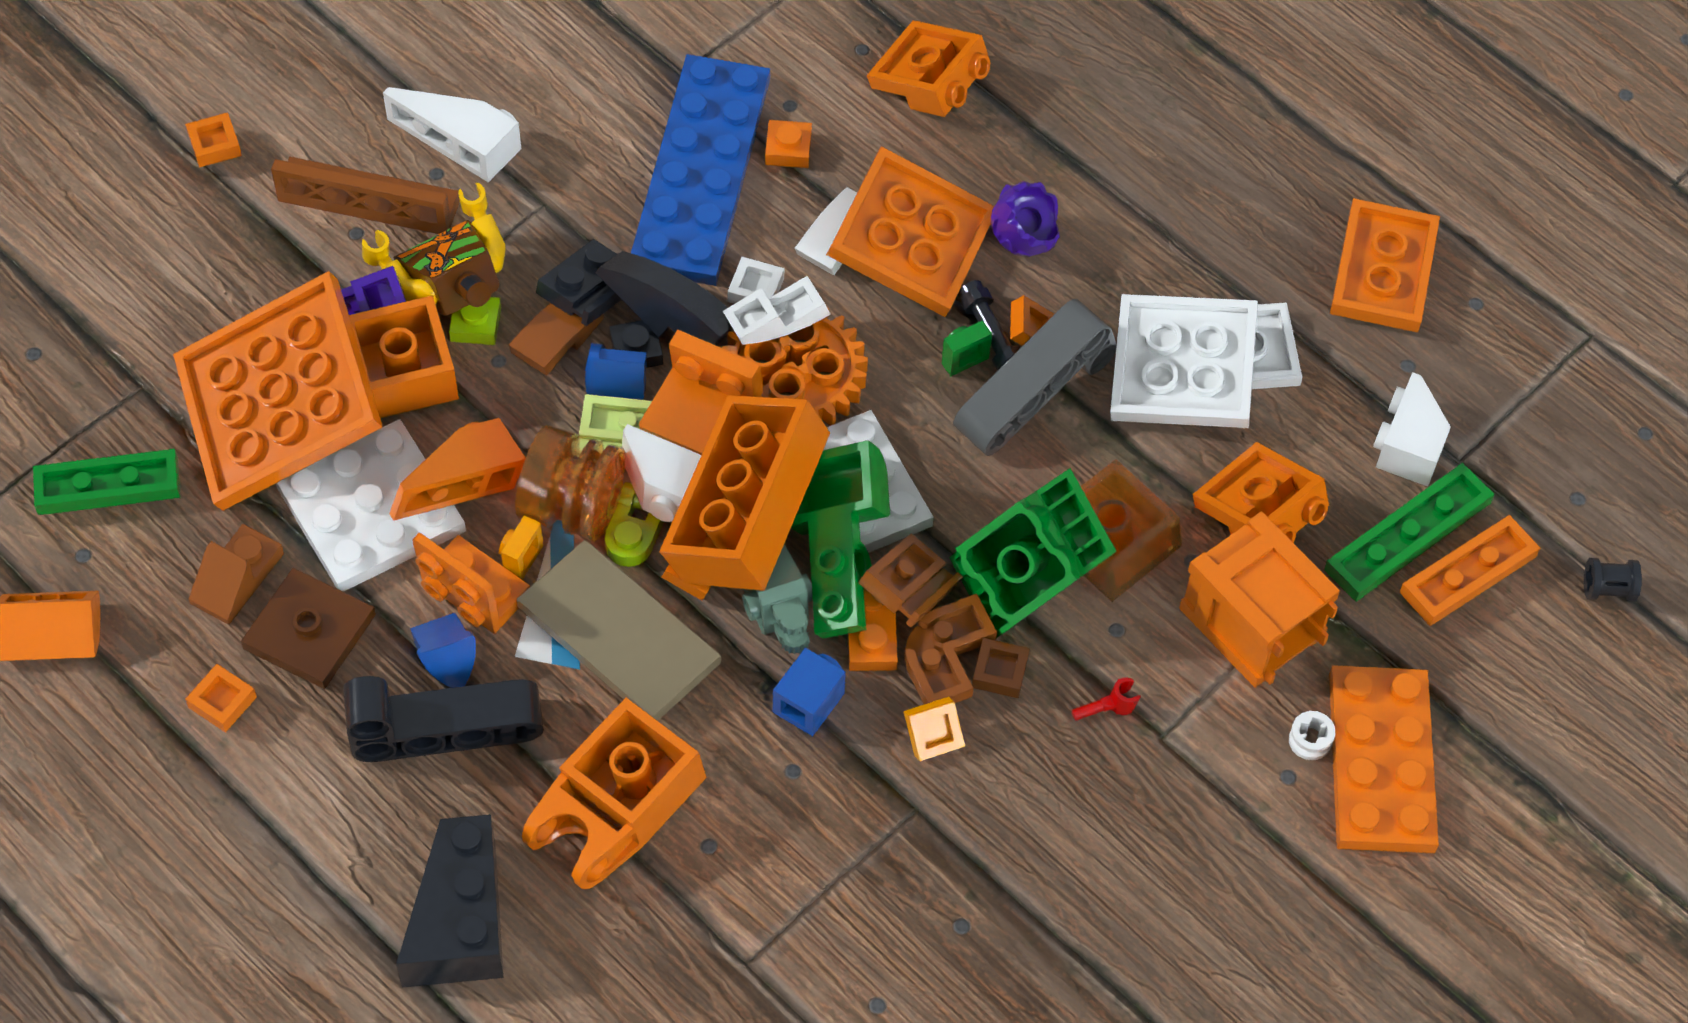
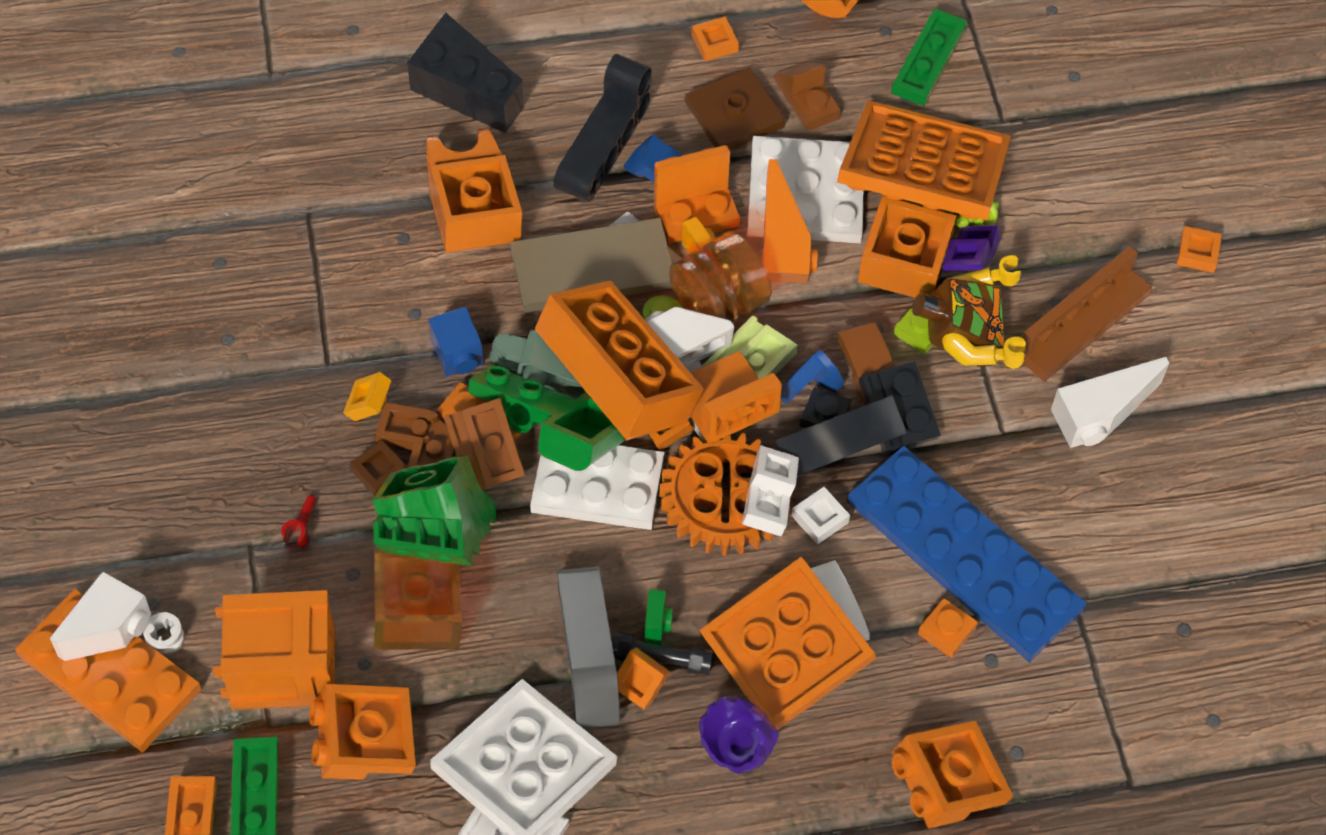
camera: 125 degrees right, 0 degrees up
(1361, 761) = (102, 620): none -> white slope

